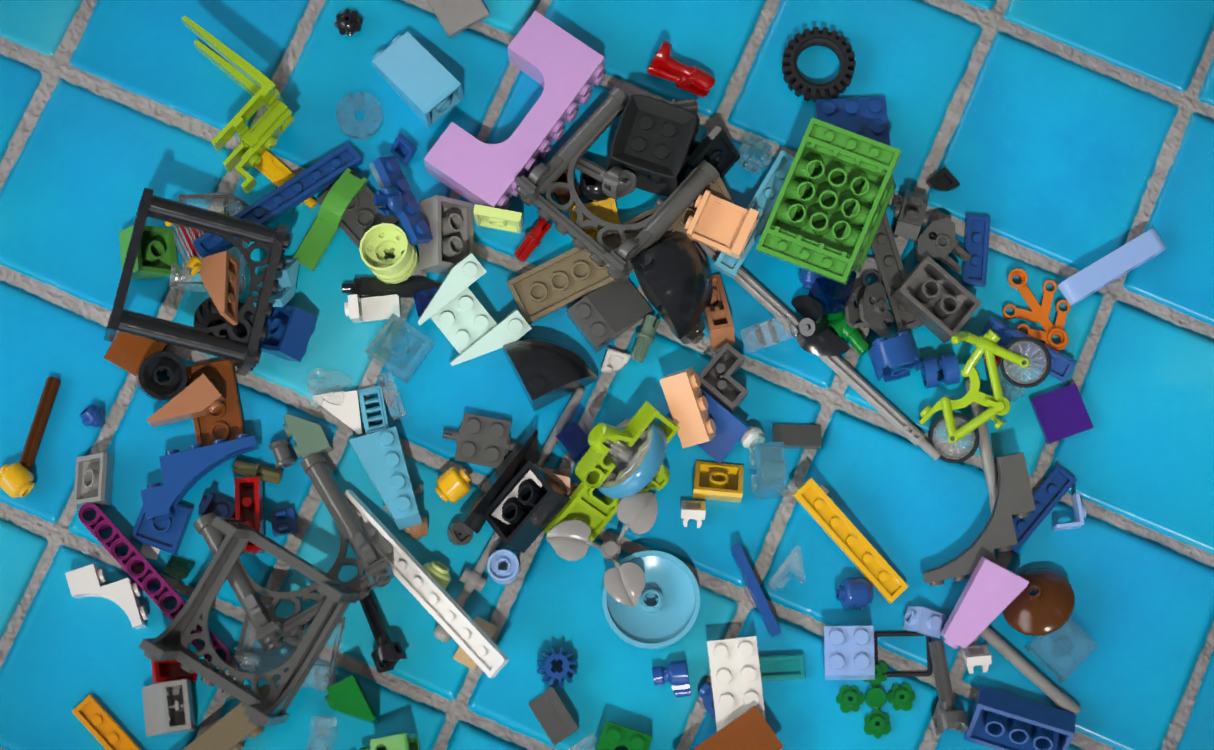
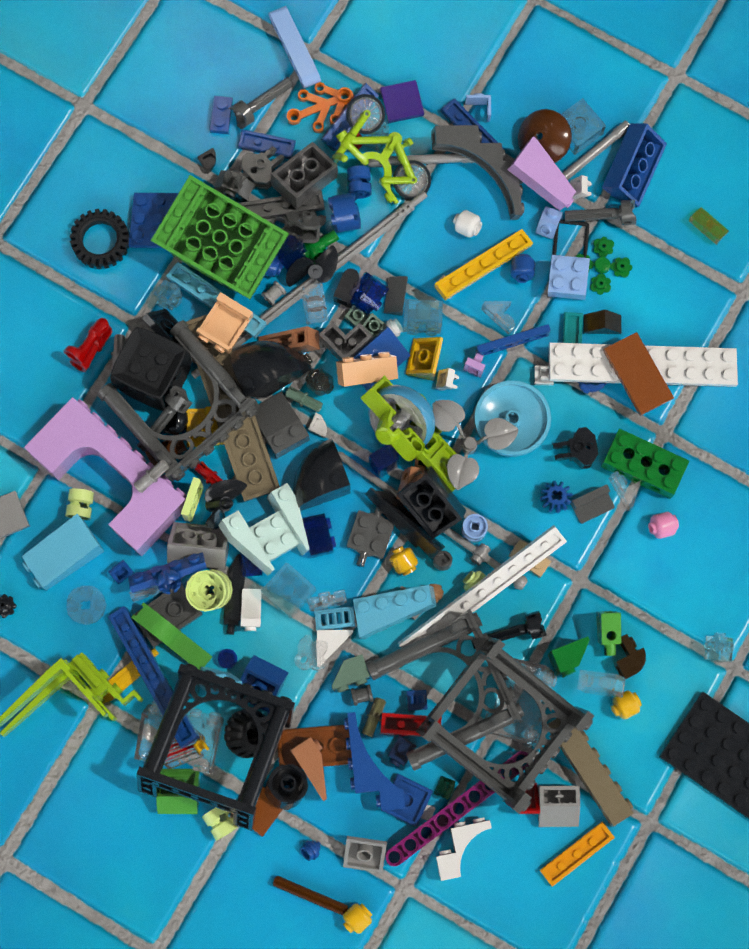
camera: 85 degrees left, 0 degrees up
(105, 303) = (220, 823): none -> yellowish green wheel
(221, 279) = (217, 723): nougat slope -> none
(312, 289) = (227, 658): none -> clear blue plate
(474, 377) = (318, 535): none -> clear blue brick
(487, 86) = (79, 503): none -> yellowish green wheel
(504, 251) = (219, 499): none -> black piece
(513, 161) = (151, 476): none -> light grey axle
(621, 687) = (577, 448): none -> black hinge
(669, 354) = (319, 382): none -> clear smoke head
(676, 674) = (570, 408): blue piece -> none
(715, 632) = (542, 375): none -> white tile
(716, 546) = (475, 366): none -> lavender tile
(758, 401) = (369, 322): none -> sand green slope
(777, 283) = (273, 293): none -> light grey bush
(791, 400) = (369, 294): none -> clear blue cylinder
(796, 706) = (602, 323): none -> dark brown slope
(798, 371) = (348, 282): none -> black leg
(904, 515) = (467, 223): none -> white head
(1006, 189) = (221, 115): none -> blue plate
(1013, 217) = (244, 111): none -> dark grey piece

